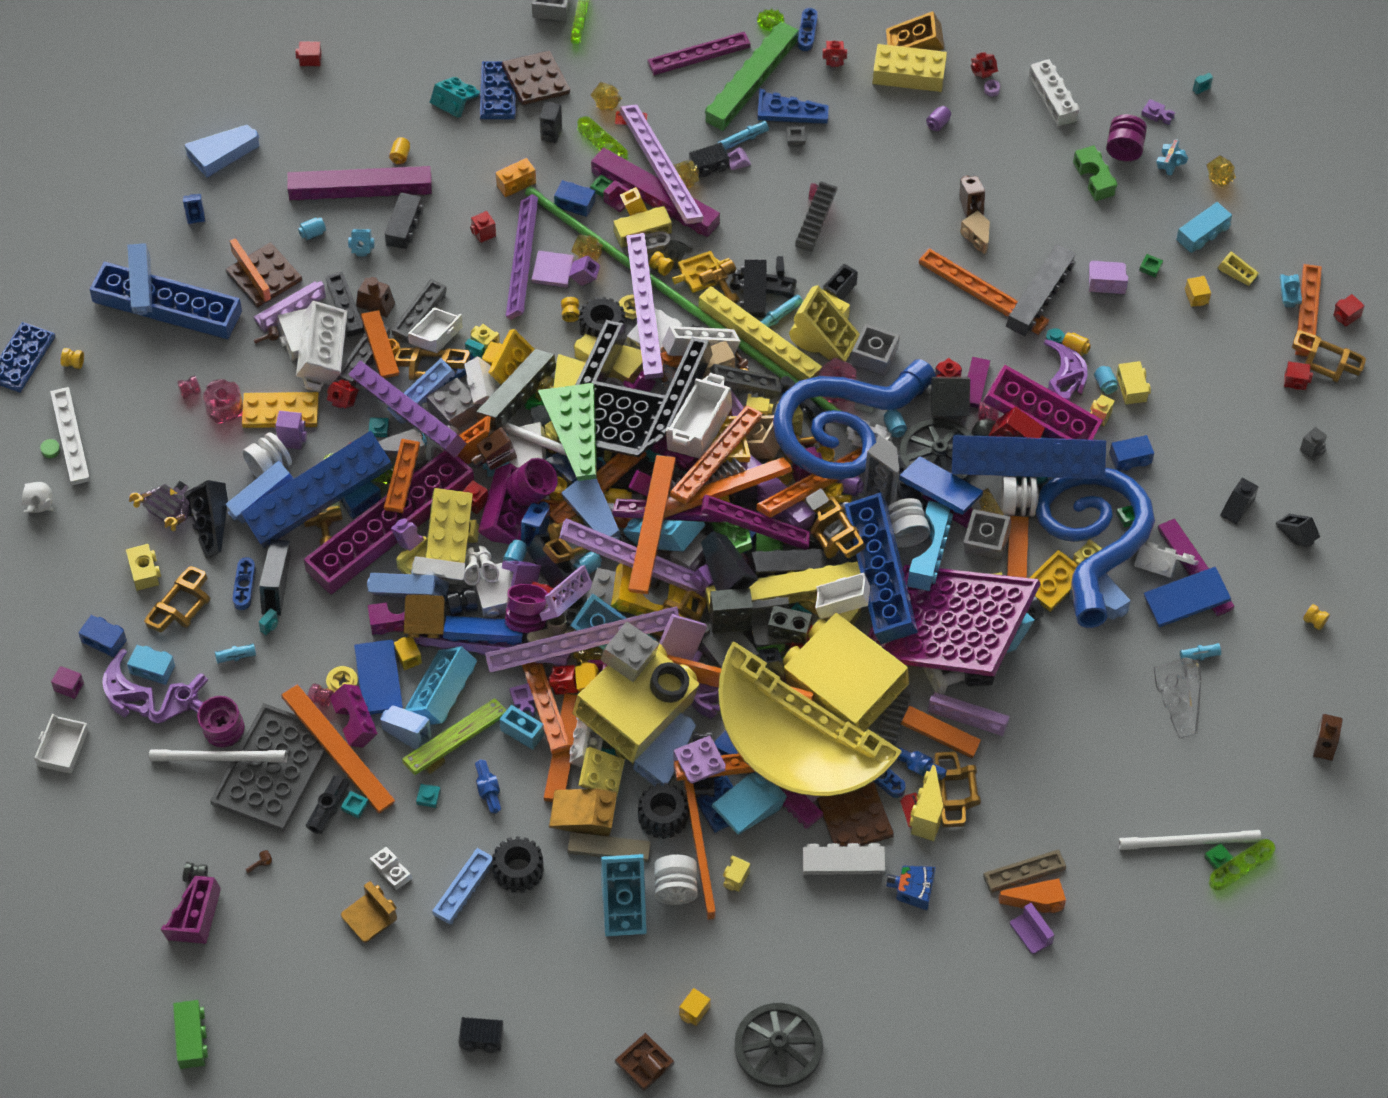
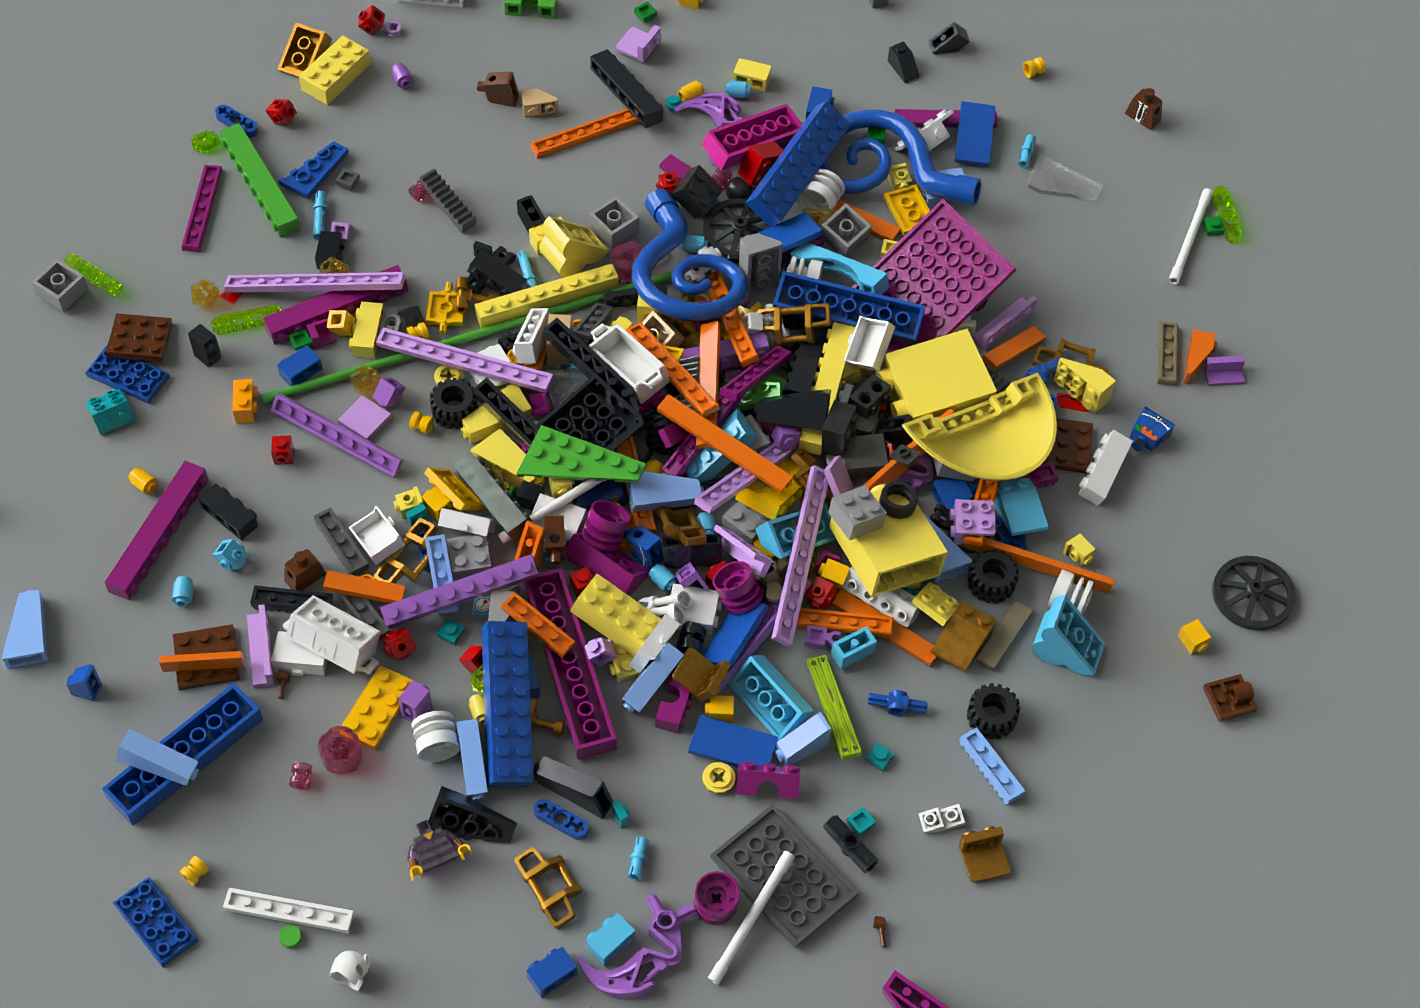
camera: 65 degrees left, 0 degrees up
(140, 557) = (500, 910): light yellow brick -> none
(191, 870) = (869, 991): pearl dark grey wheel -> none
(320, 695) = (727, 802): clear pink wheel -> none
(338, 748) = (795, 809): orange tile -> none
(481, 1034) = (1150, 813): black brick -> none
(1102, 408) = (766, 102): light yellow brick -> none

